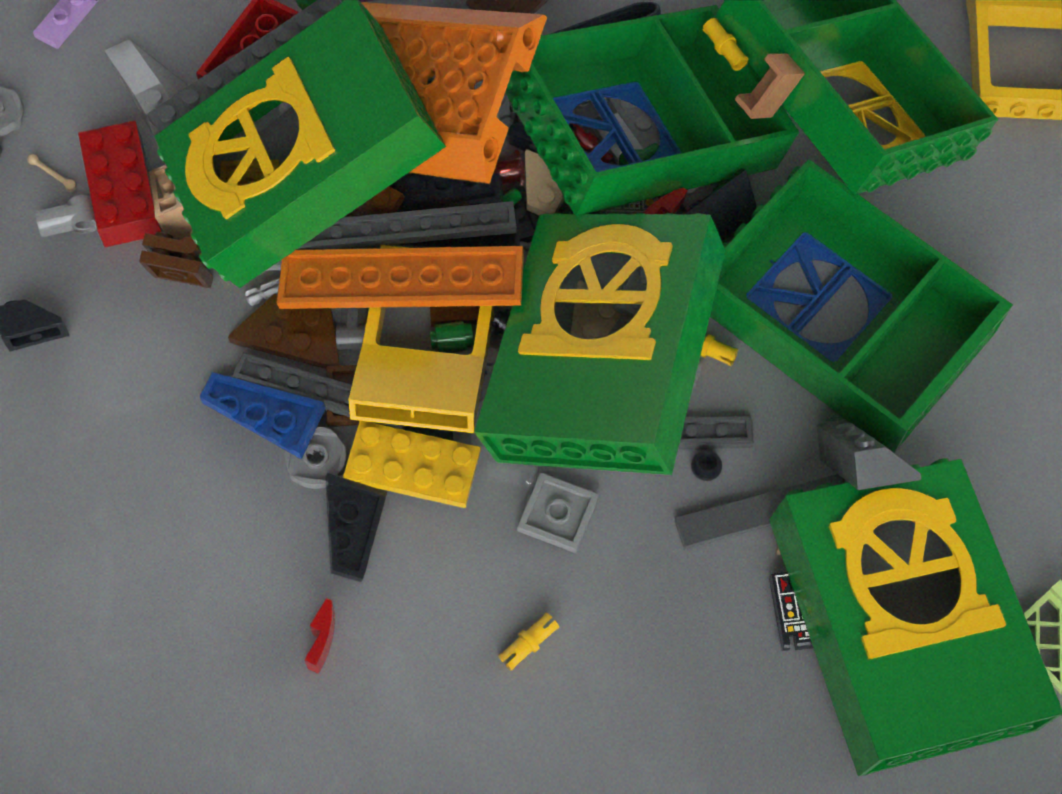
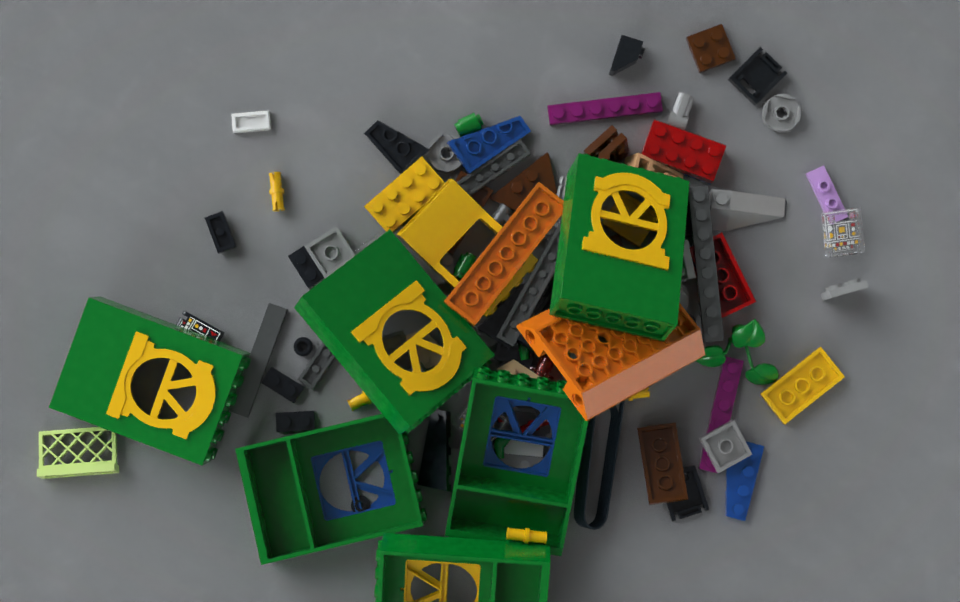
camera: 130 degrees right, 20 degrees up
(69, 184) = (704, 127): tan hinge -> none
(121, 310) = (604, 108): none -> magenta plate
(257, 453) = (468, 124): none -> green brick
(323, 629) = (352, 97): red slope -> none
(454, 750) = (251, 121): none -> white tile
(601, 534) = (306, 267): none -> black plate
(641, 677) = (220, 232): none -> black plate
(669, 203) = (457, 432): red slope -> none
(773, 87) = (474, 531): nougat panel -> none
(774, 458) = (282, 384): none -> black plate
(802, 409) = (295, 421): none -> black plate
(831, 268) = (365, 500): none -> black plate
(860, 457) = (238, 418): dark grey slope -> none

